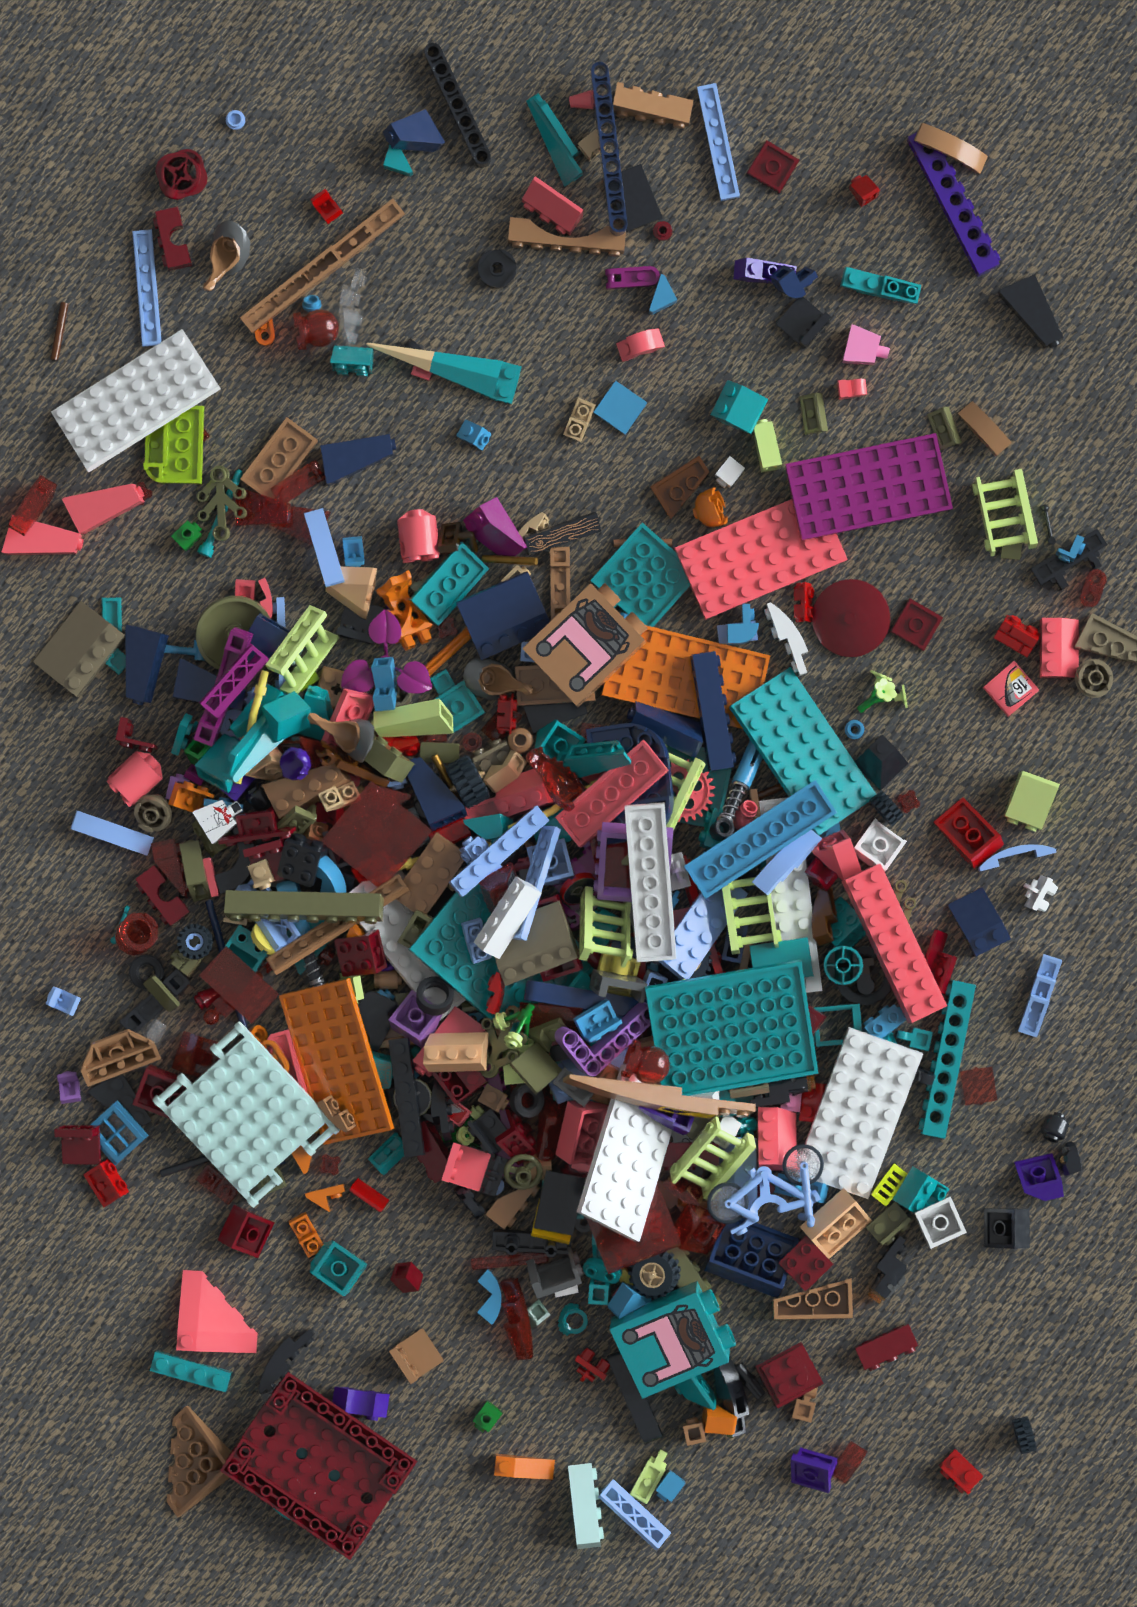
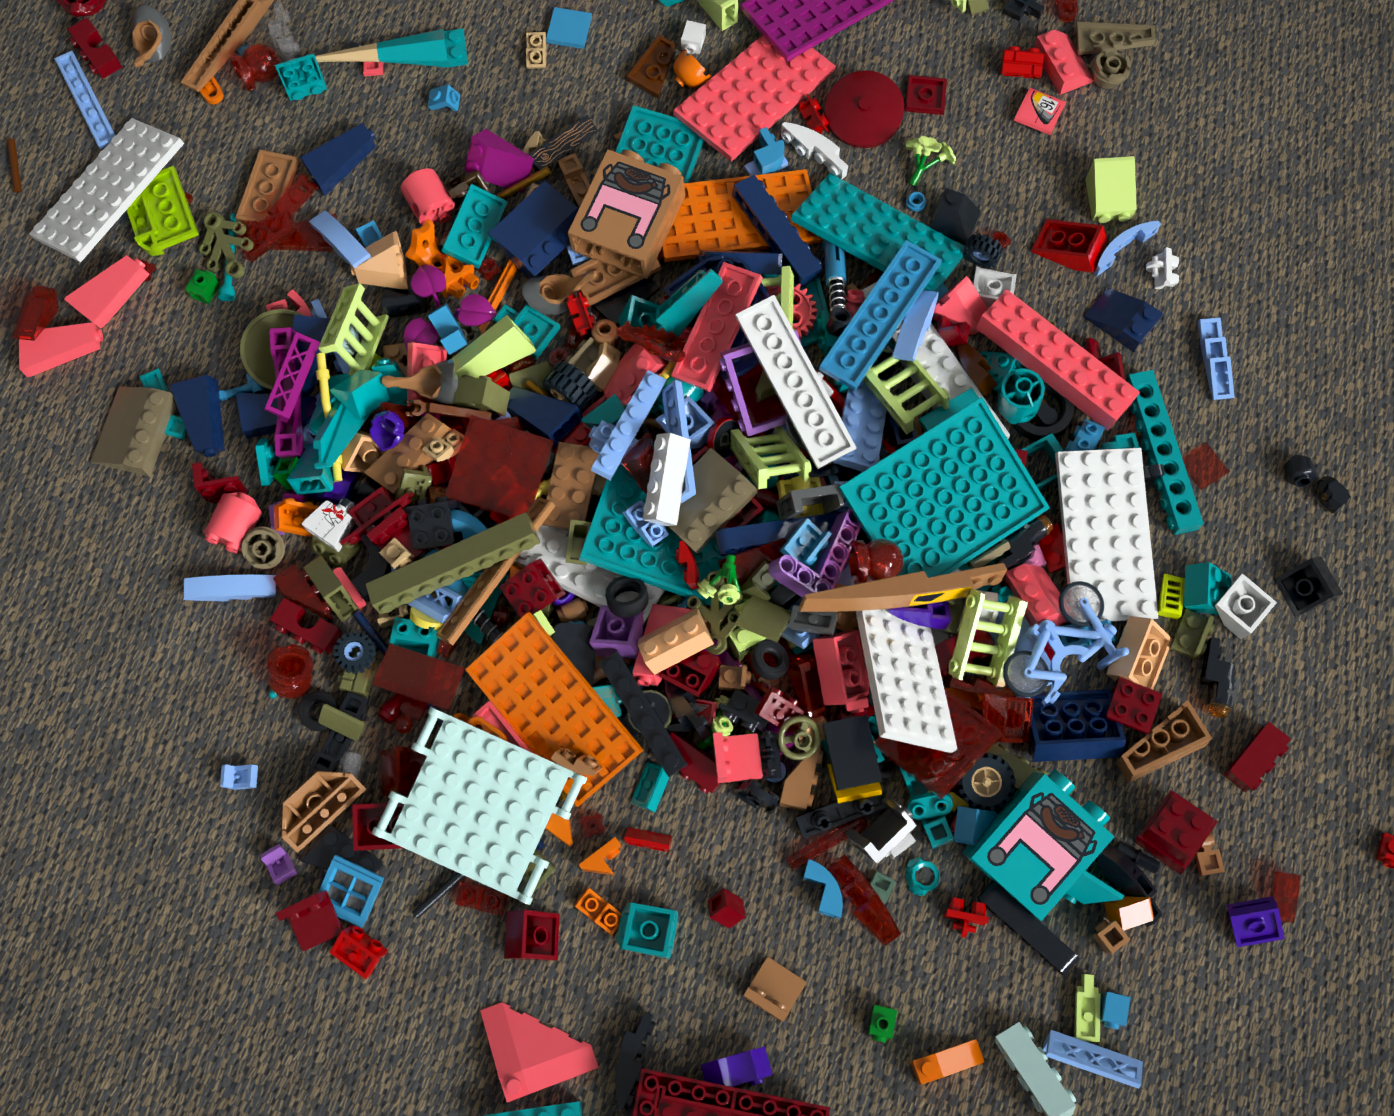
camera: 20 degrees left, 15 degrees down
(1040, 1177) = (1316, 521): dark purple slope -> none

